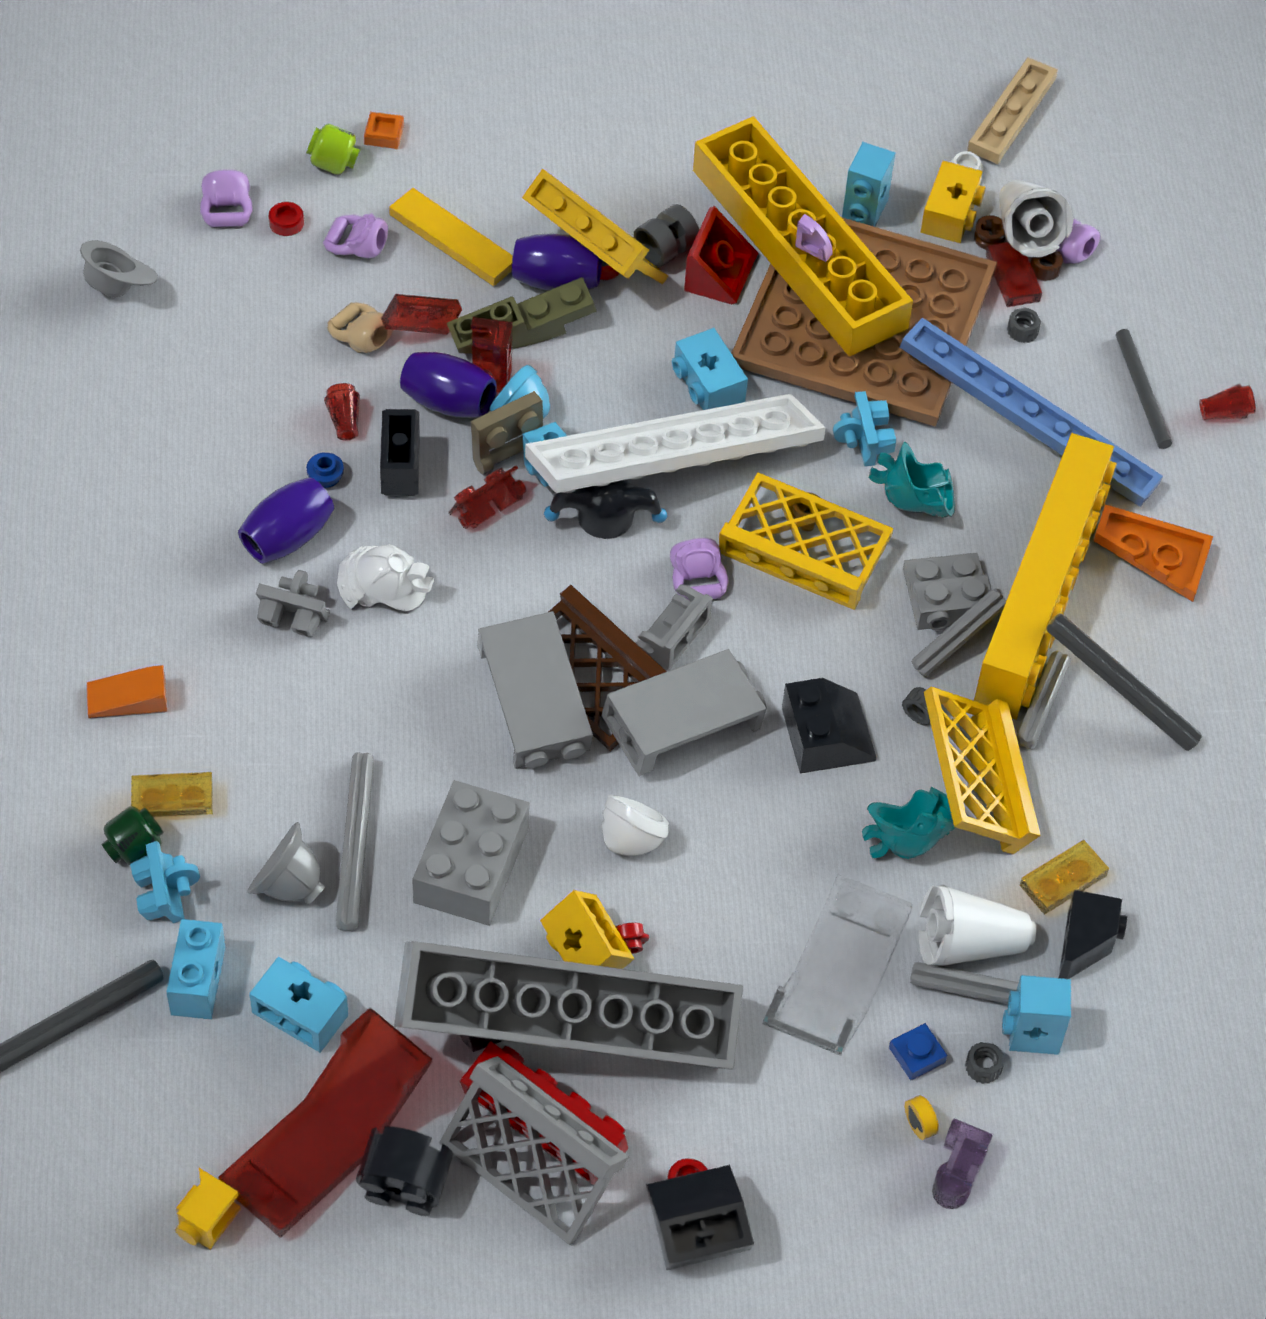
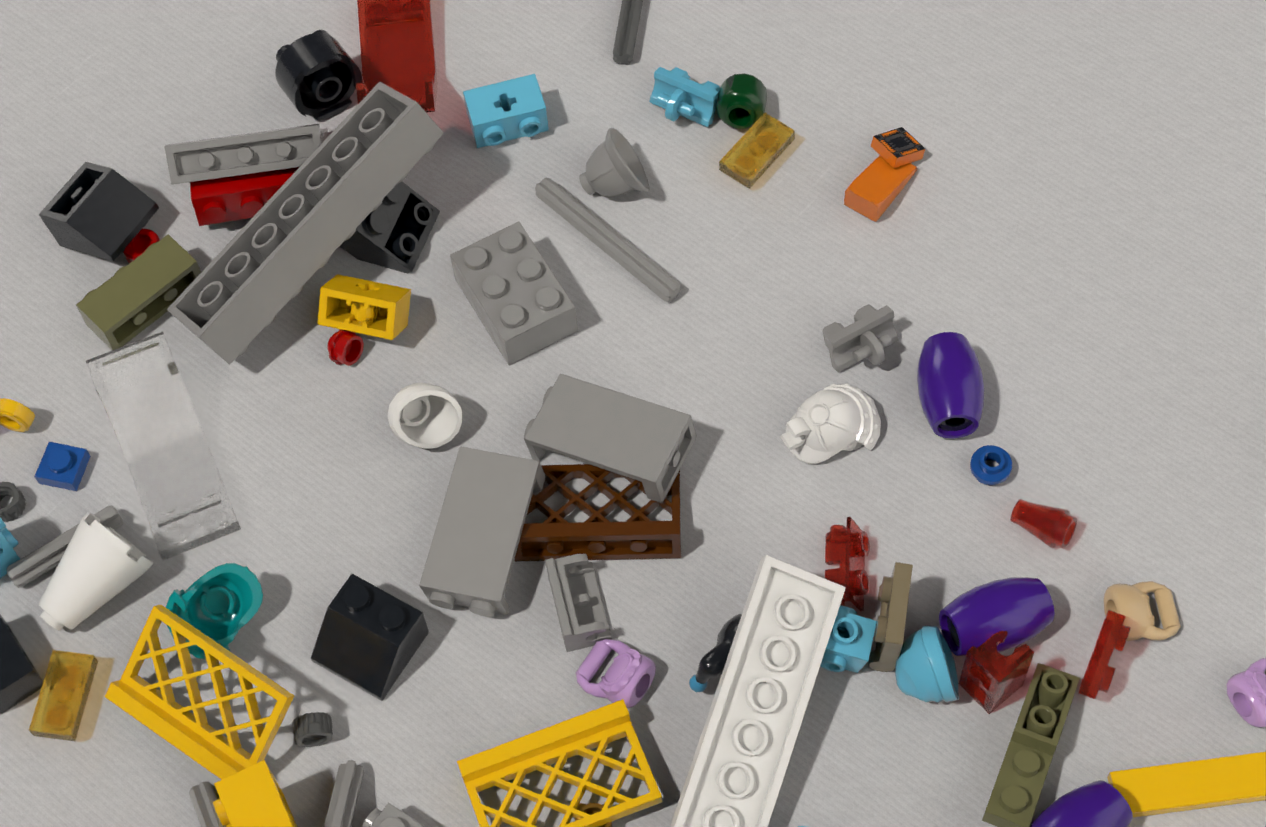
camera: 140 degrees right, 5 degrees up
(82, 700) = (898, 147): none -> tile
(196, 969) = (593, 68): medium azure brick -> none
(400, 452) = (948, 518): black brick -> none
(731, 1127) = (138, 293): none -> olive brick

